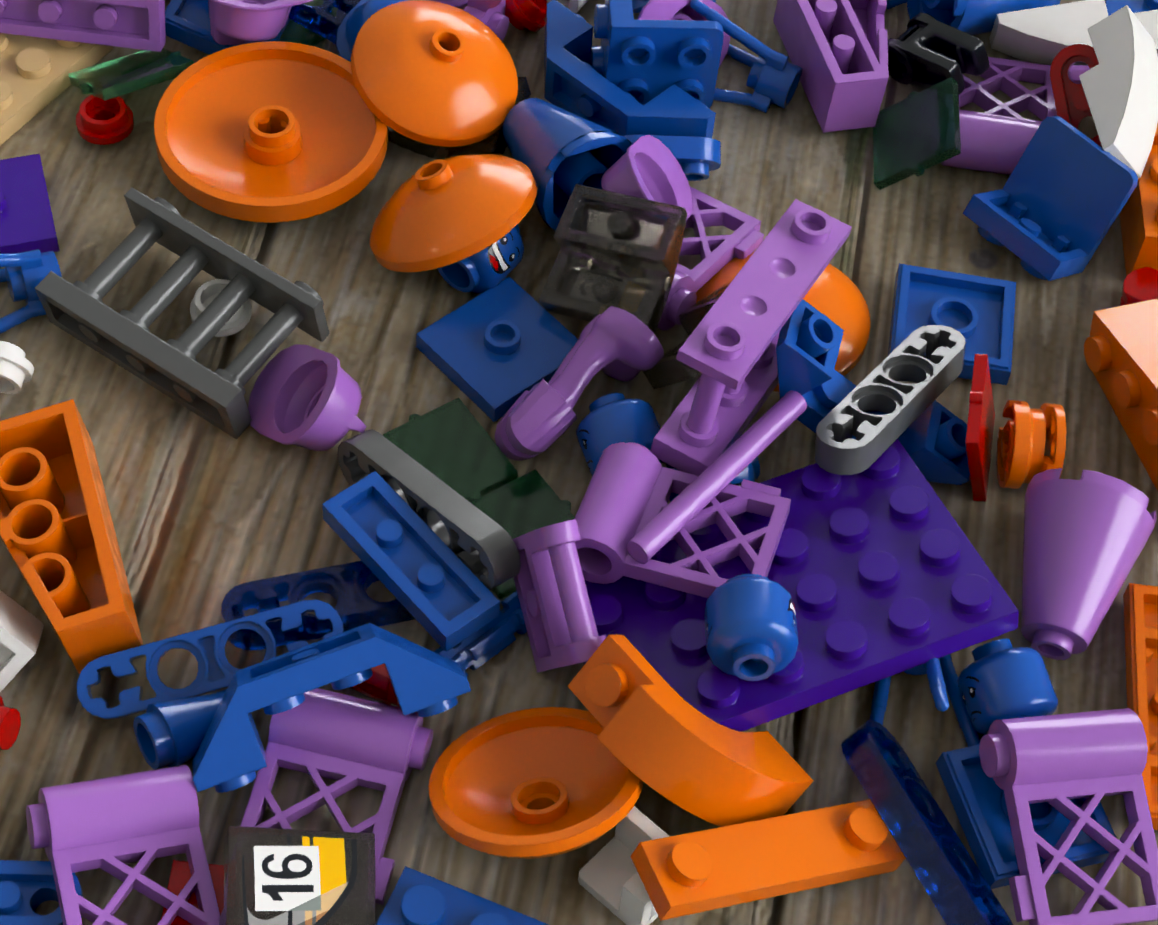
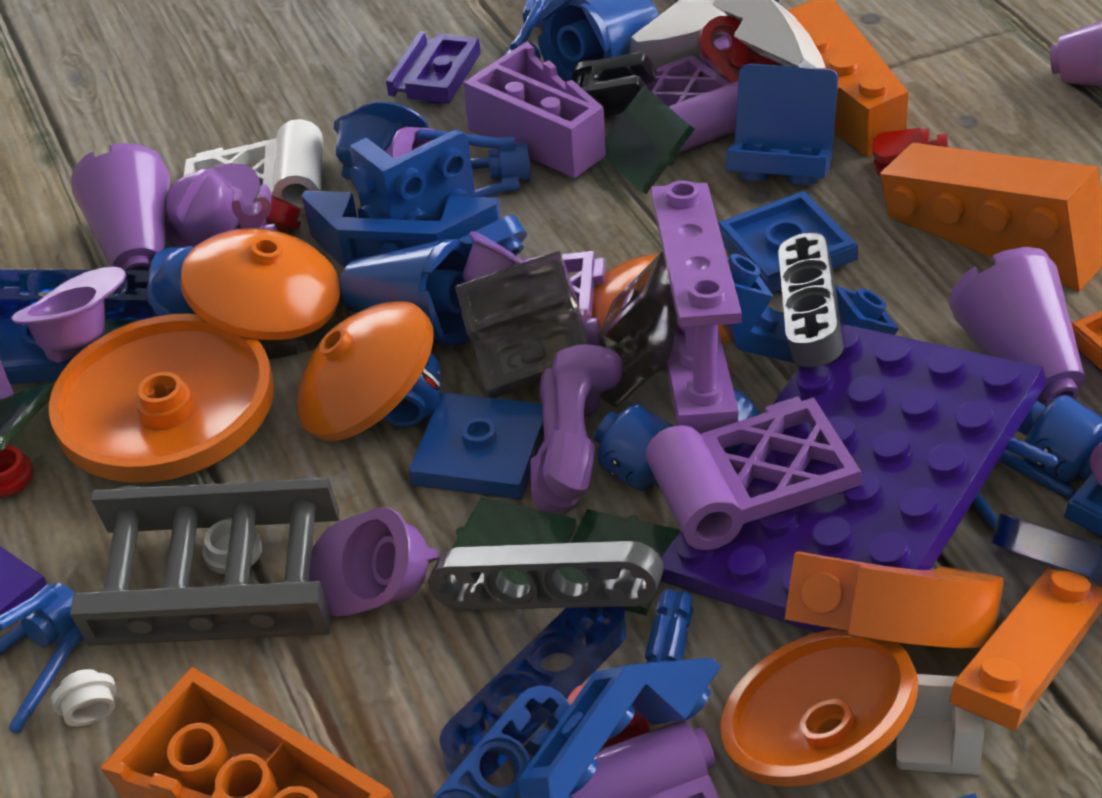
camera: 25 degrees left, 10 degrees down
(411, 560) = (569, 618): blue plate -> none
(555, 597) = (703, 581): medium lavender plate -> none
(716, 477) = (750, 415): medium lavender bar -> none
(750, 627) = (881, 486): blue head -> none
(980, 427) = (880, 278): red piece -> none
(1029, 442) = (919, 280): orange wheel -> none

